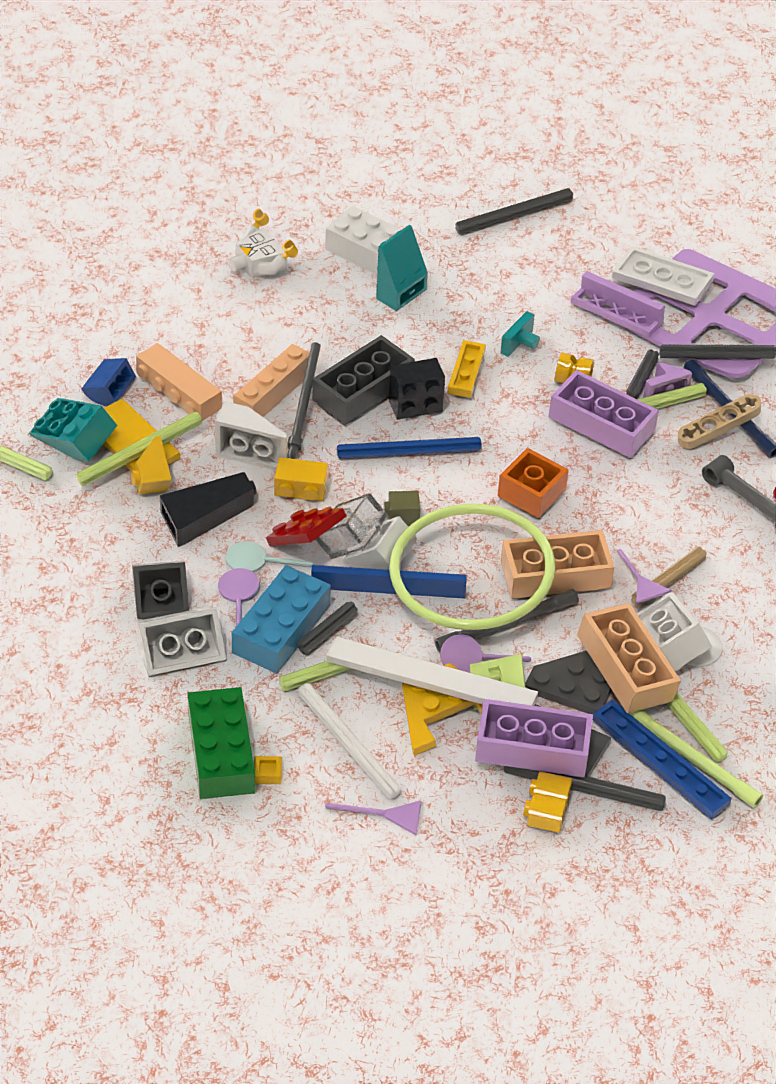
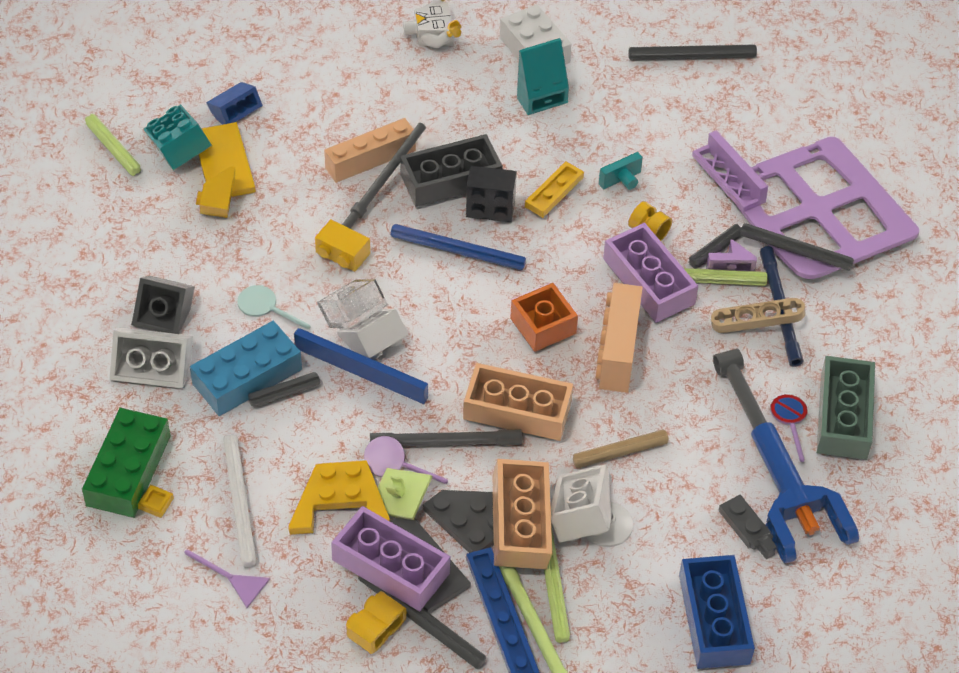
camera: 25 degrees right, 5 degrees up
(136, 449) = (205, 174): yellowish green axle -> none
(178, 381) = (291, 122): light nougat brick -> none
(205, 506) = (245, 243): black slope -> none
(238, 586) = (233, 325): lavender piece -> none
(248, 437) = (312, 190): white slope -> none
(305, 526) = (312, 291): red plate -> none
(310, 675) = (263, 427): yellowish green axle -> none
(403, 504) = (415, 302): olive brick -> none
(426, 674) = (338, 466): white tile -> none
(472, 624) = (435, 437): yellowish green piece -> none
(614, 478) = (618, 337): none -> light nougat brick
(645, 588) = (588, 453): lavender piece -> none
(663, 275) = (791, 156): white plate -> none

